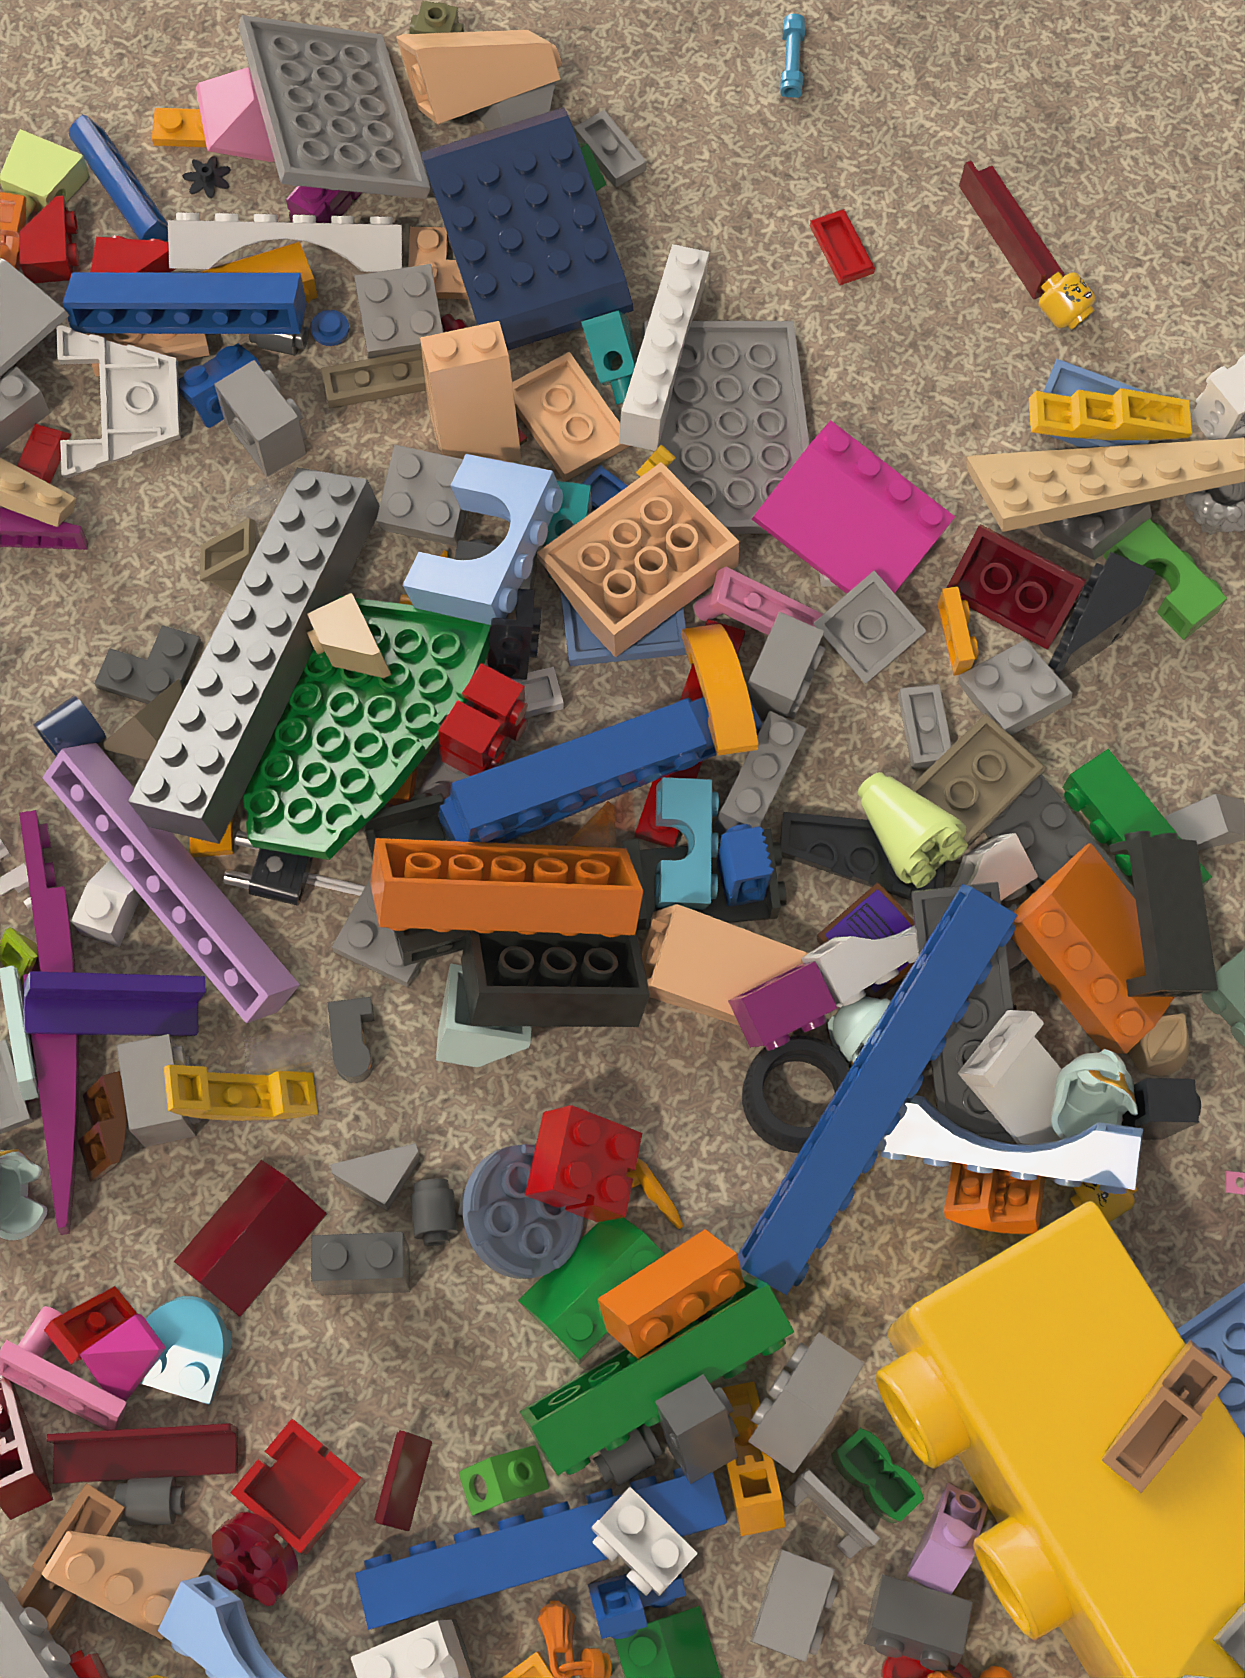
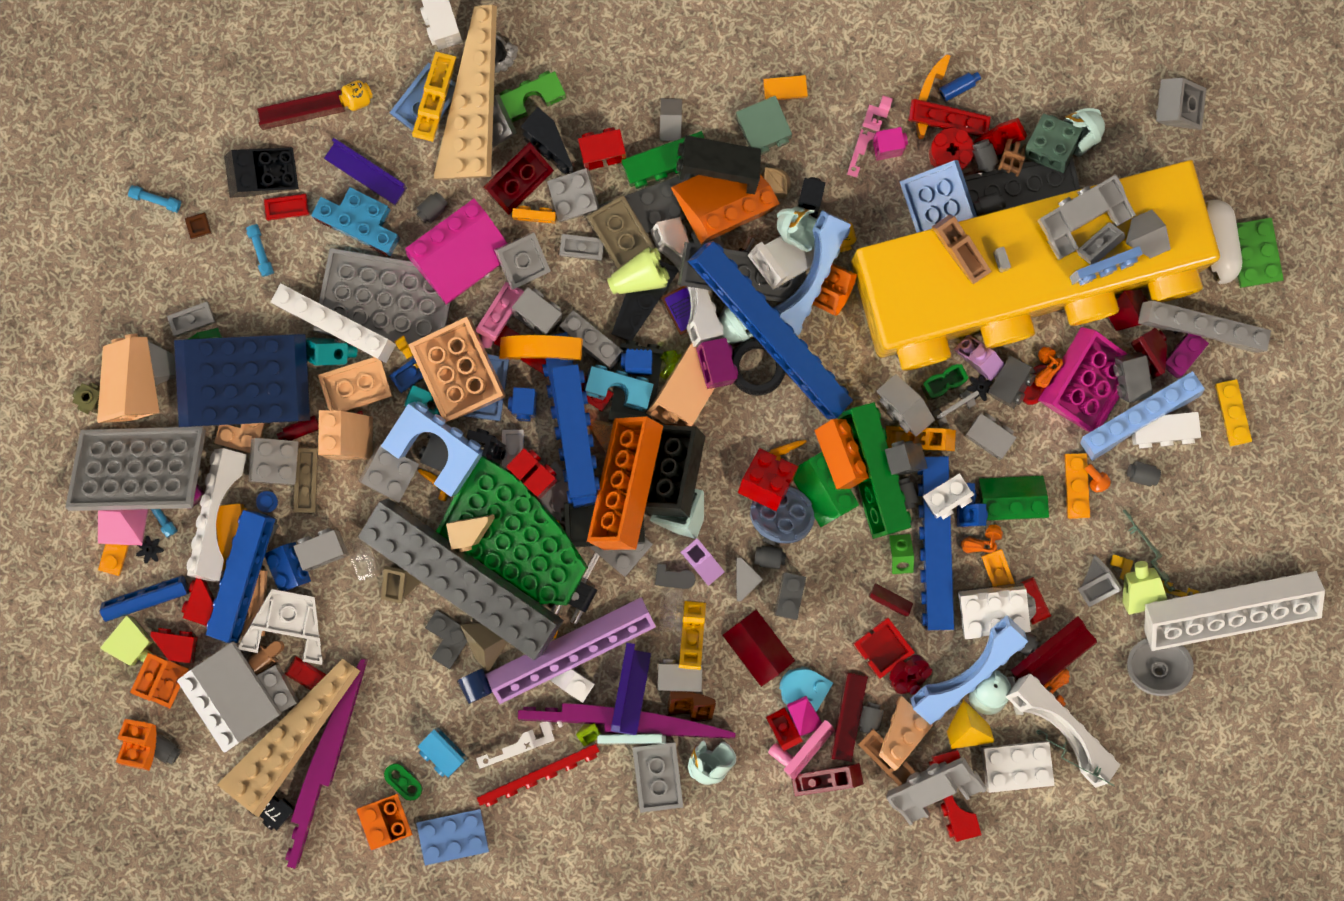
camera: 70 degrees left, 15 degrees up
(57, 382) = (265, 657): none -> medium nougat arm
(249, 193) = (168, 528): none -> dark azure bar
(394, 1081) = (702, 562): none -> lavender slope
(610, 687) = (523, 404): none -> blue brick
(730, 237) = (254, 233): none -> dark azure bar
(765, 926) = (670, 358): none -> clear neon green plate
(768, 127) = (198, 225): none -> reddish brown tile
(858, 353) = (359, 219): none -> dark azure piece
(878, 1555) = (975, 387): none -> black plant
(889, 192) = (260, 171): none -> black slope
(915, 462) = (431, 208): none -> dark grey brick
(939, 350) = (365, 172): none -> dark purple panel
(1116, 695) = (600, 147): none -> red piece
(1173, 1509) = (1002, 259): none -> light grey tile

